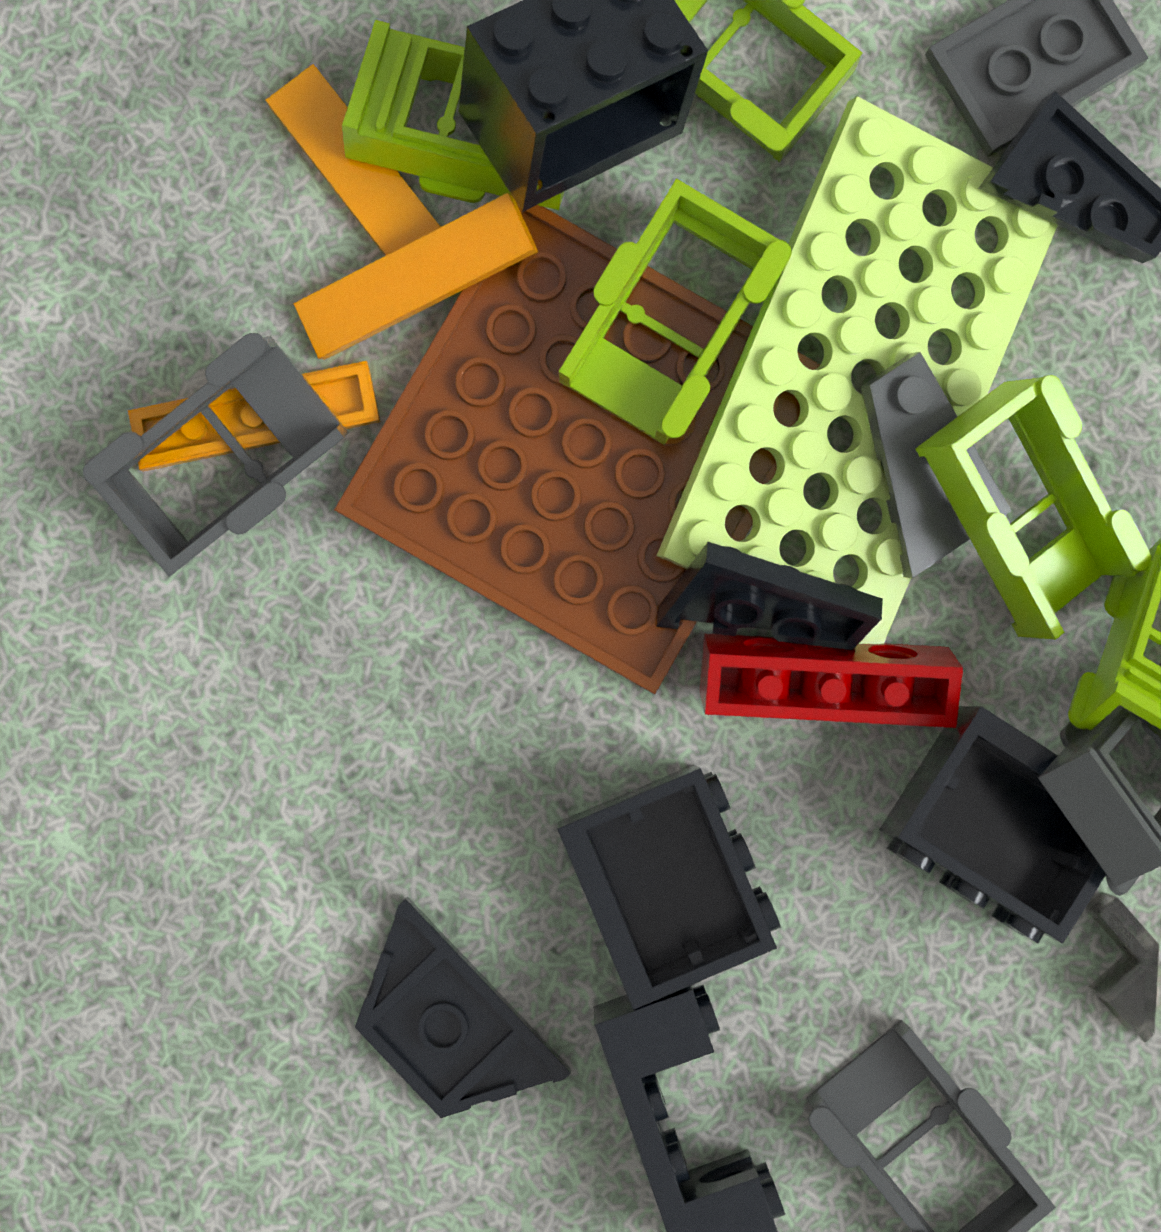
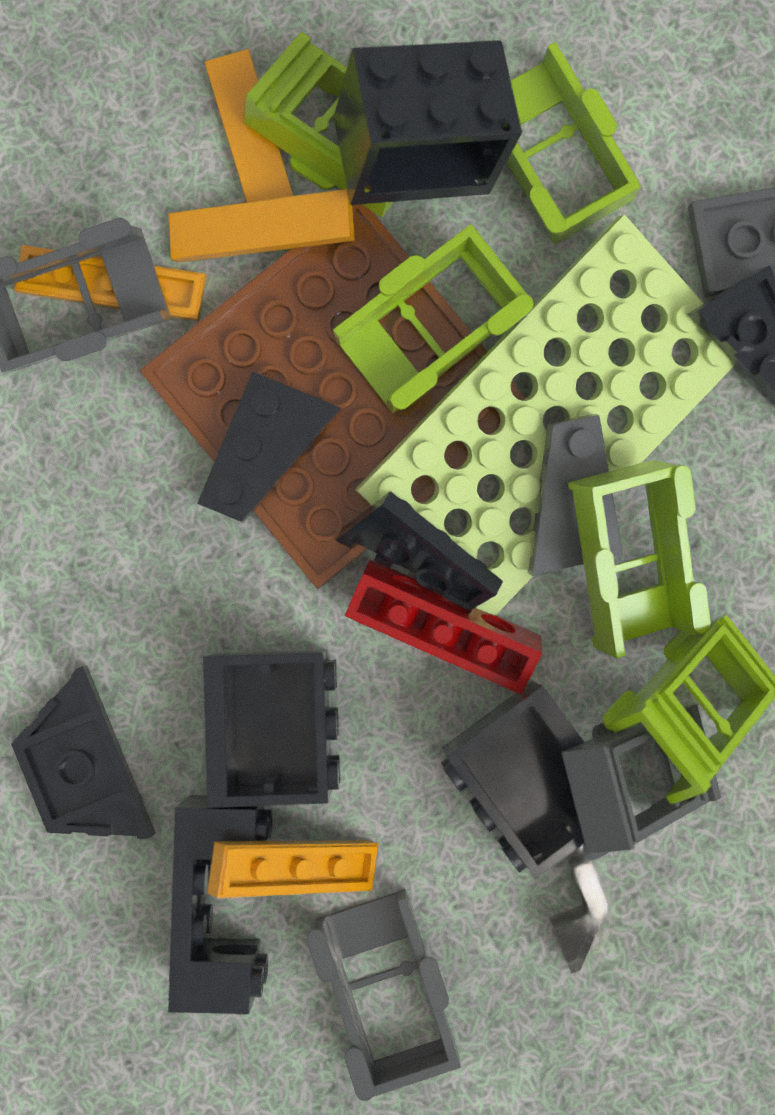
camera: 20 degrees right, 0 degrees up
(521, 543) = (261, 445): none -> black wing
(761, 1043) = (291, 867): none -> light orange tile

